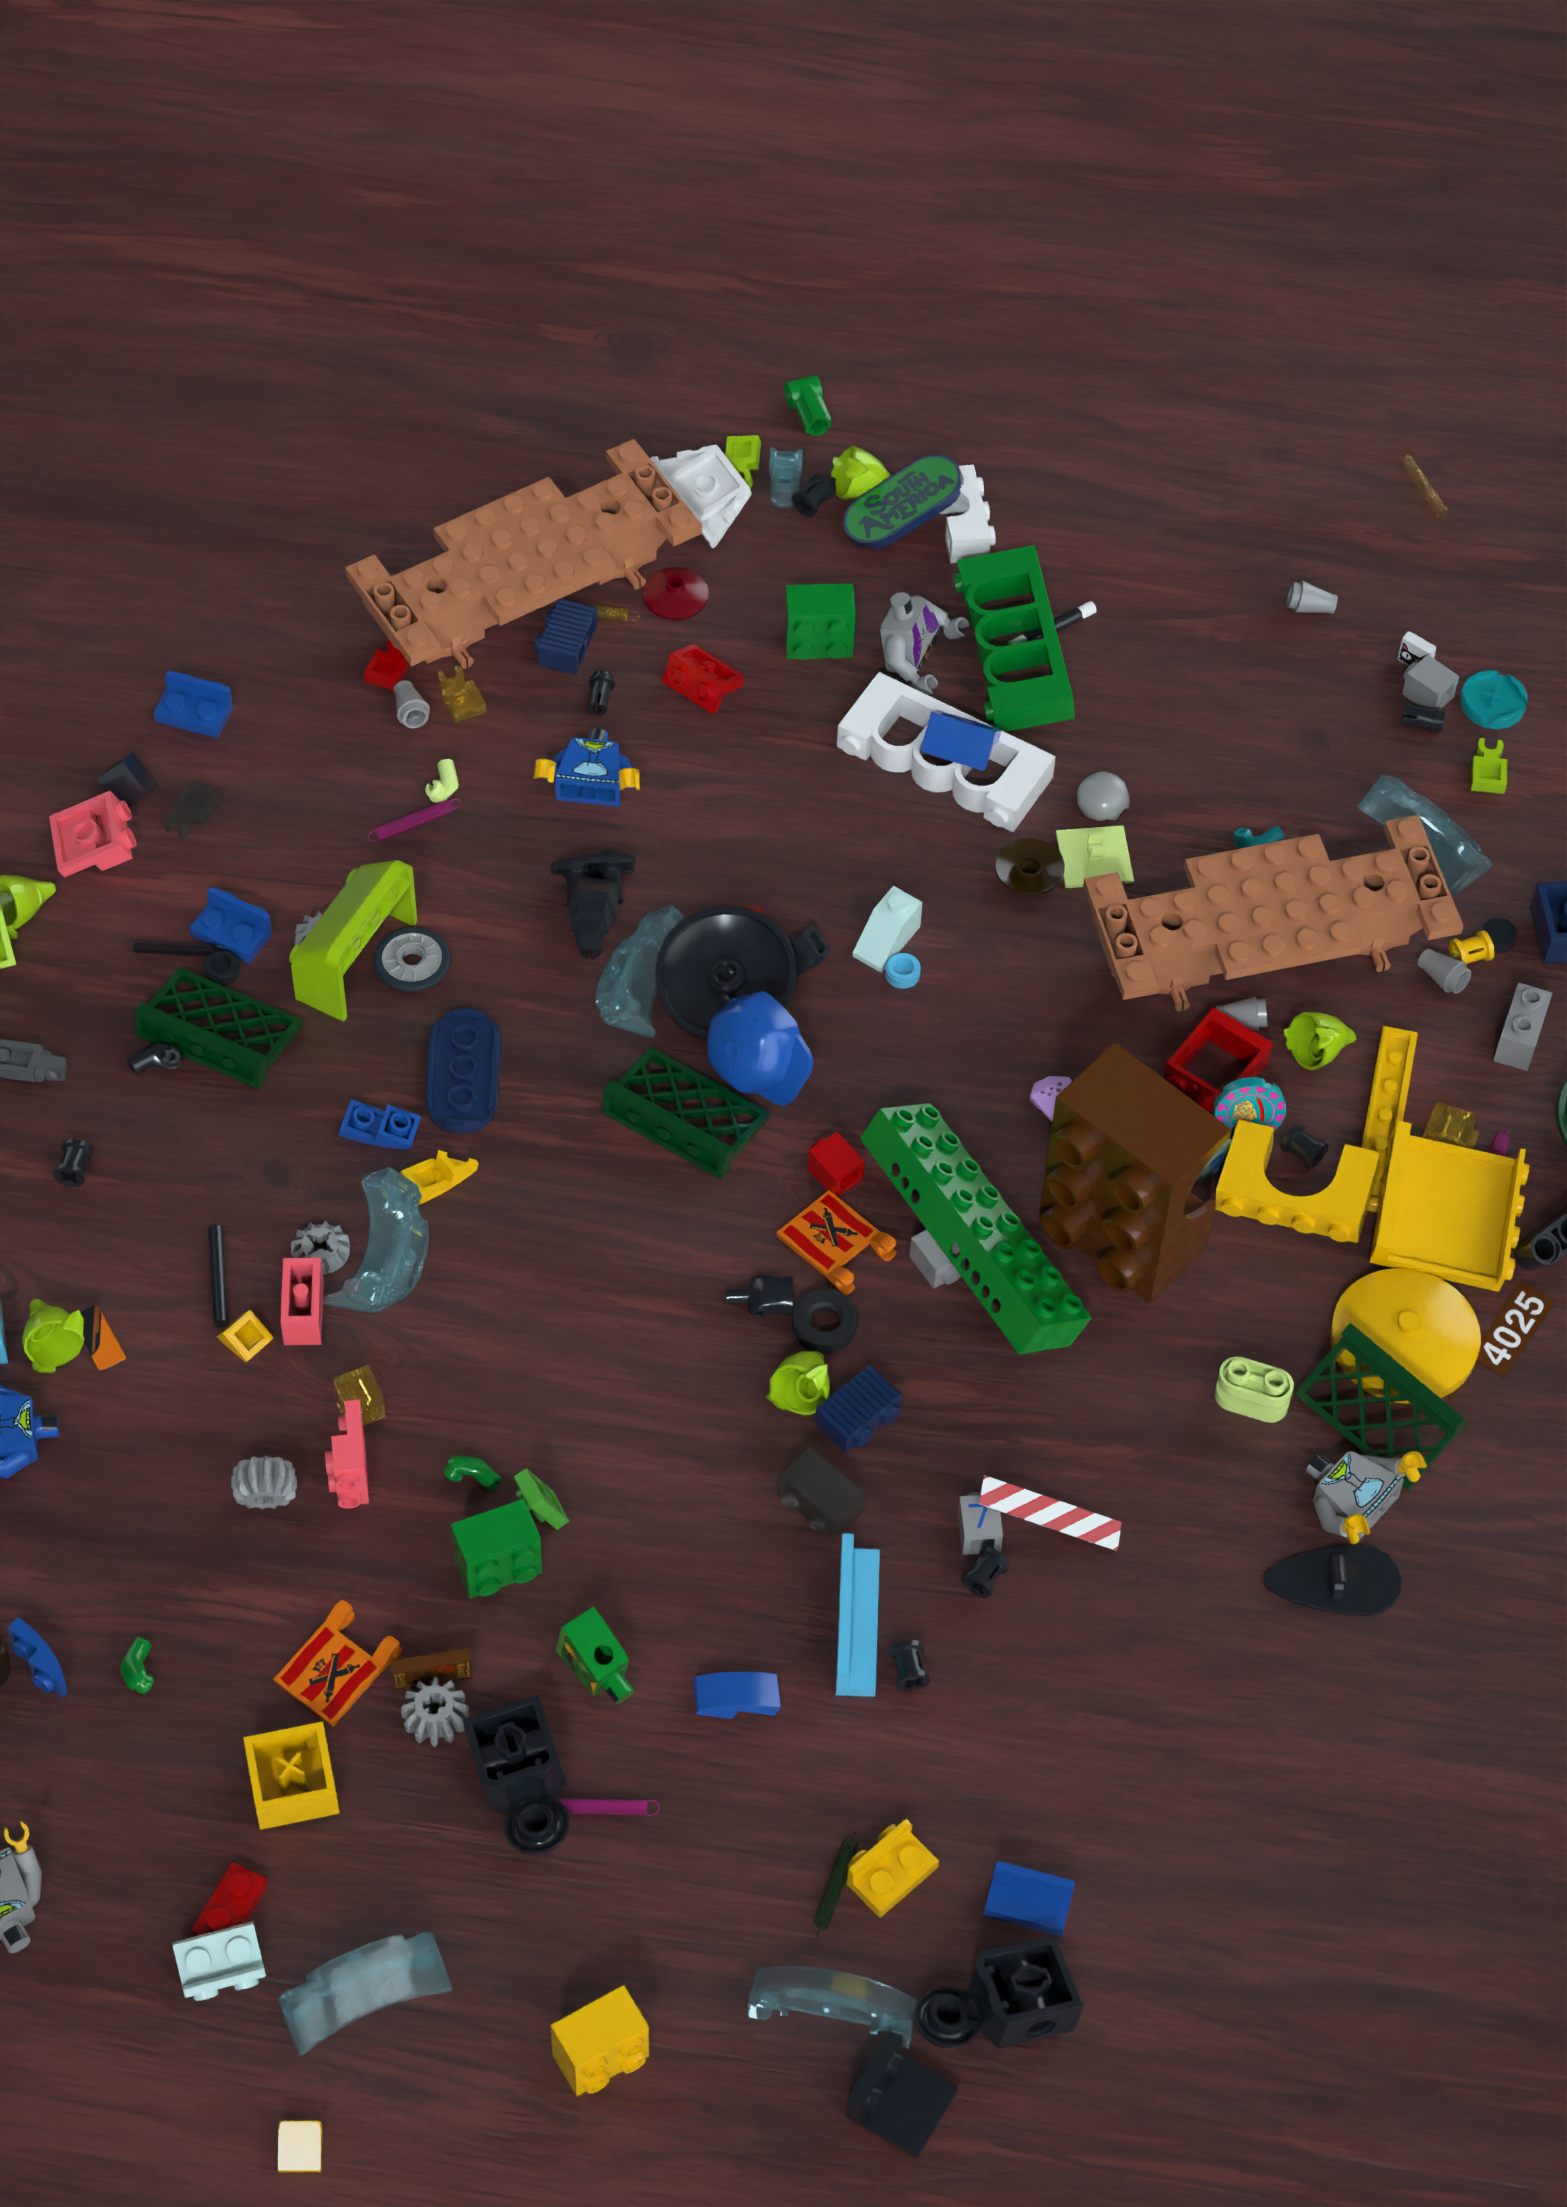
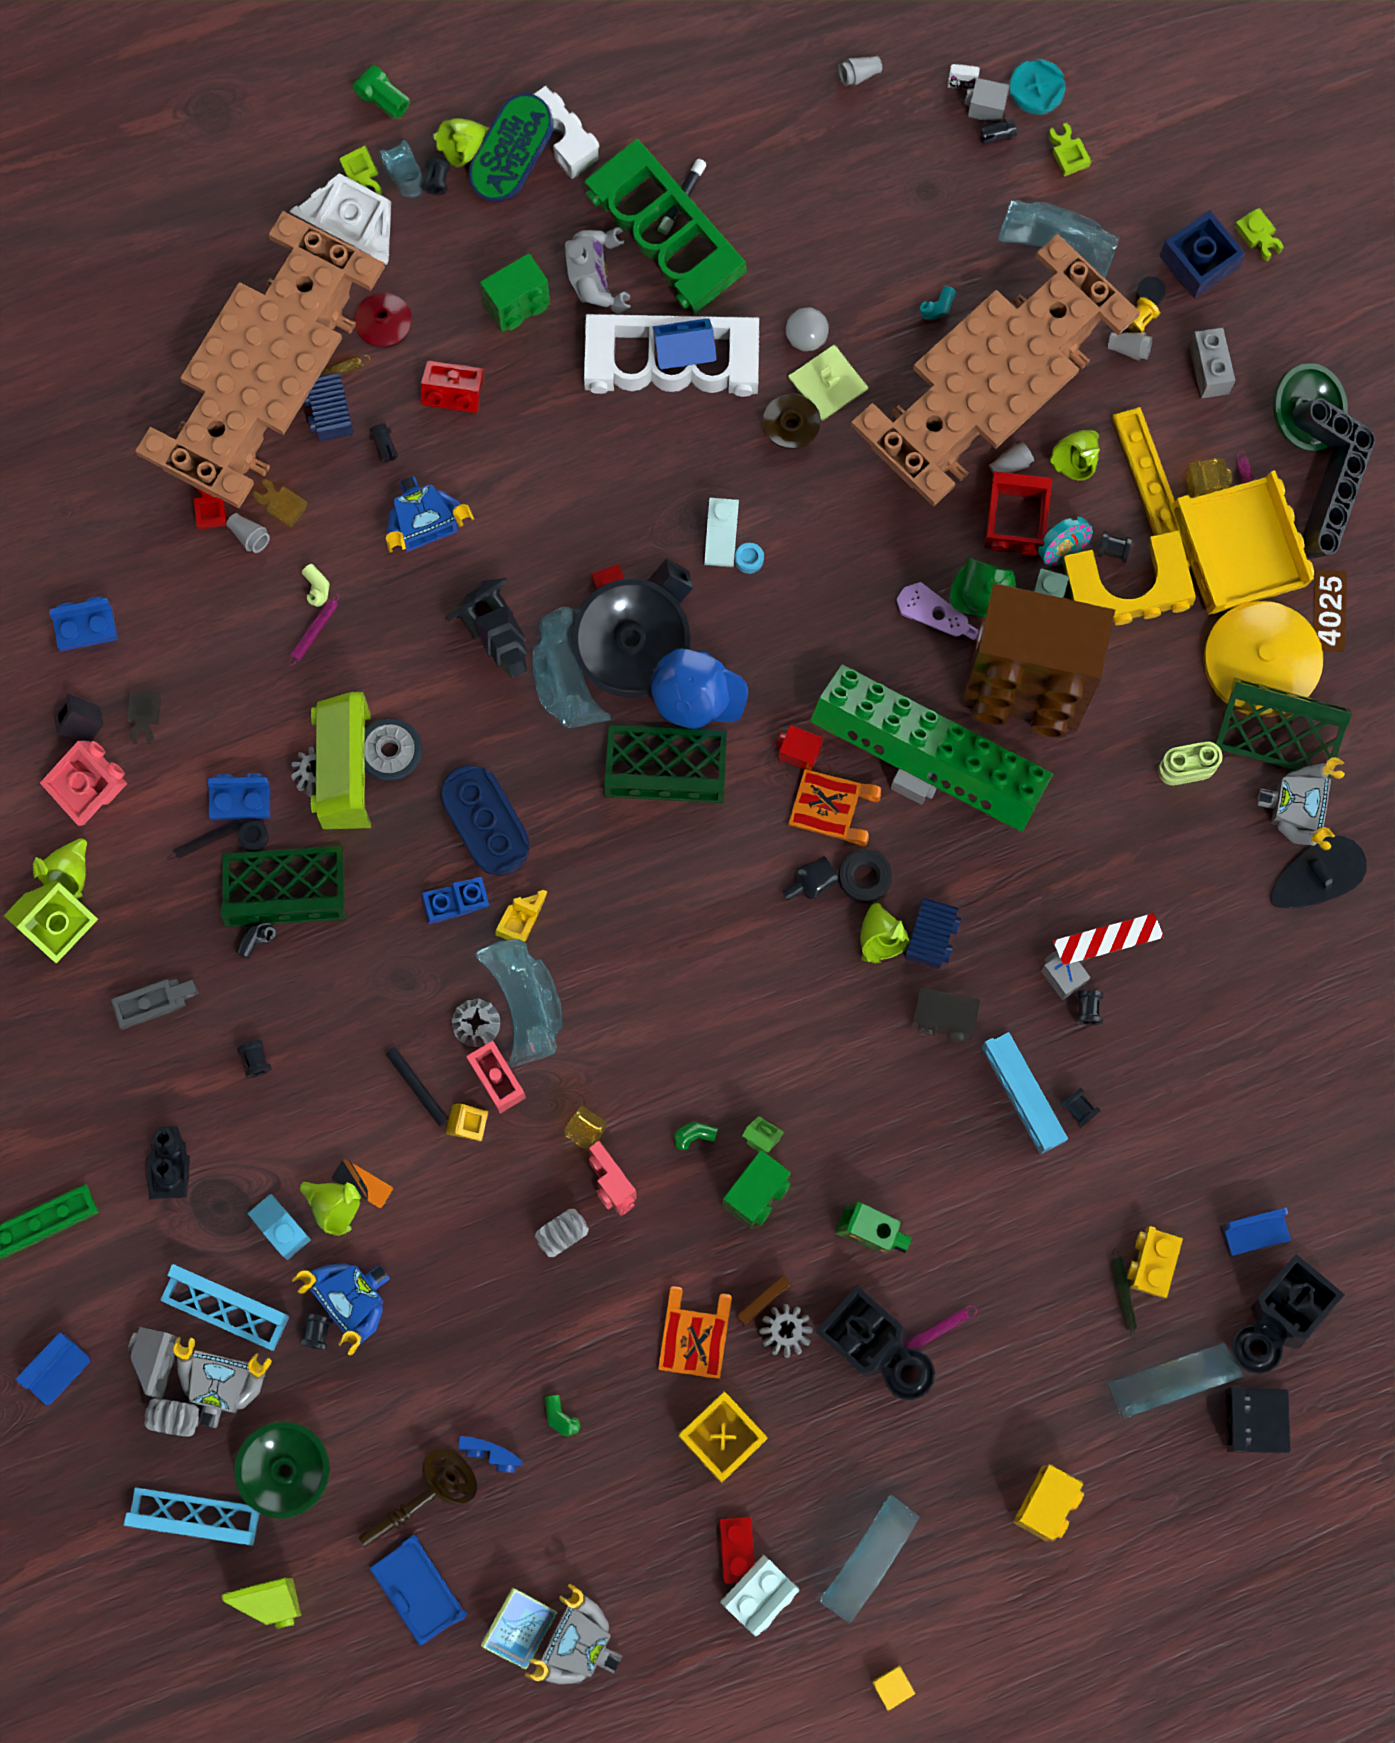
camera: 30 degrees left, 20 degrees up
(732, 1692) = (979, 1197): blue slope -> none

